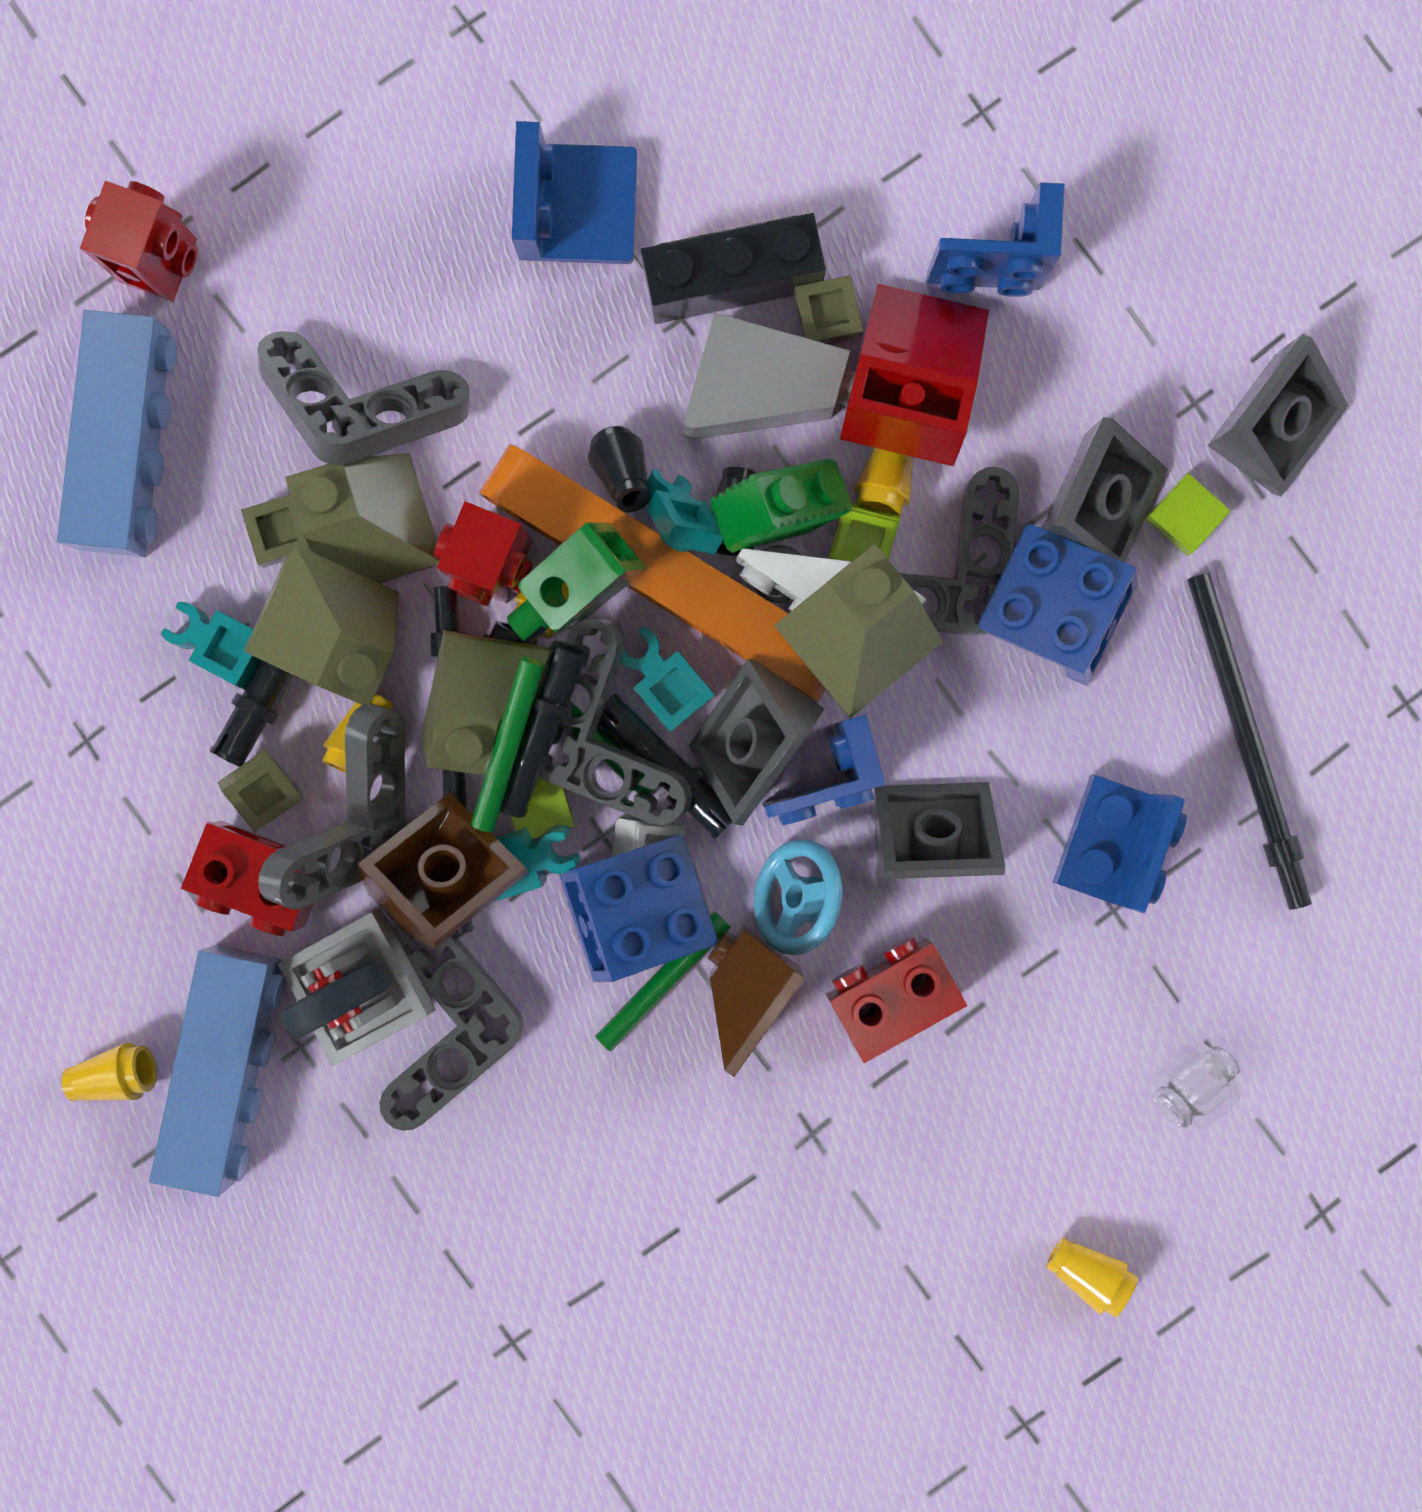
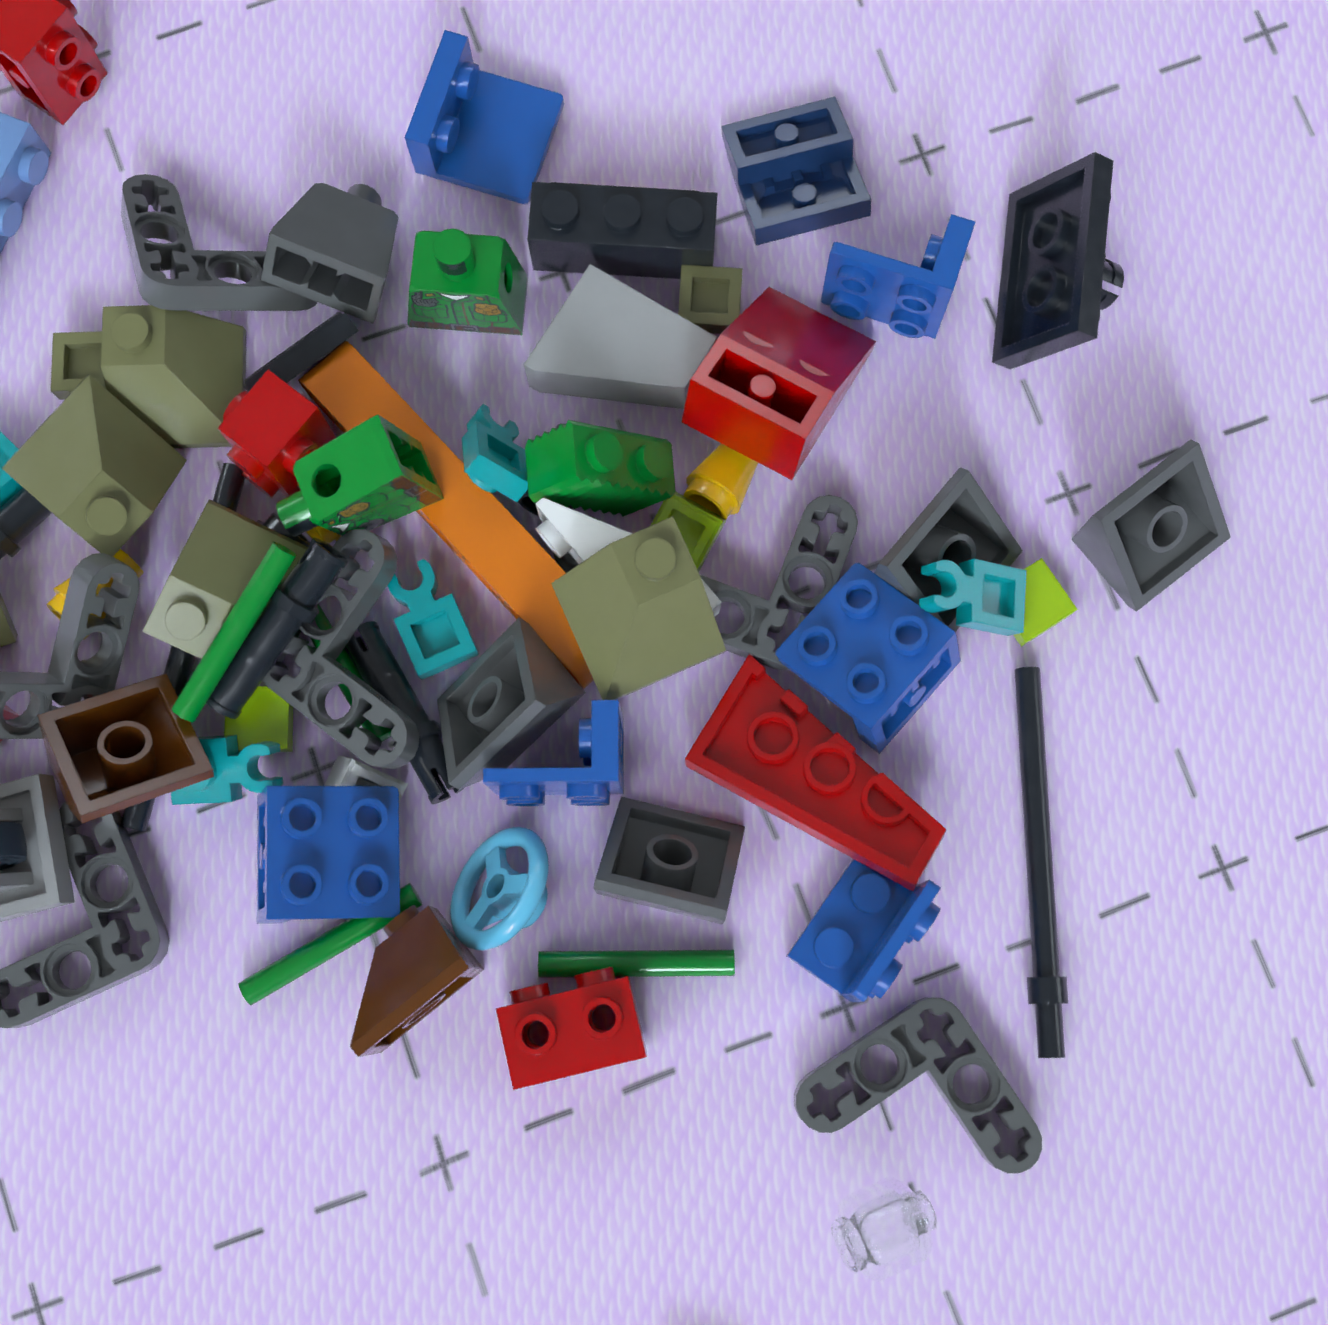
camera: 20 degrees right, 10 degrees down
(473, 468) = (307, 349): none -> black tile
(479, 361) = (334, 249): none -> dark grey torso
(602, 361) = (466, 284): none -> green torso
(620, 465) = (450, 392): black cone -> none
(871, 162) = (796, 170): none -> dark blue slope
(929, 924) = (638, 963): none -> green bar
(1018, 720) = (796, 768): none -> red wing
(1137, 194) = (1055, 263): none -> black plate
(1146, 525) = (985, 594): none -> teal plate
(1185, 940) = (914, 1059): none -> dark grey beam

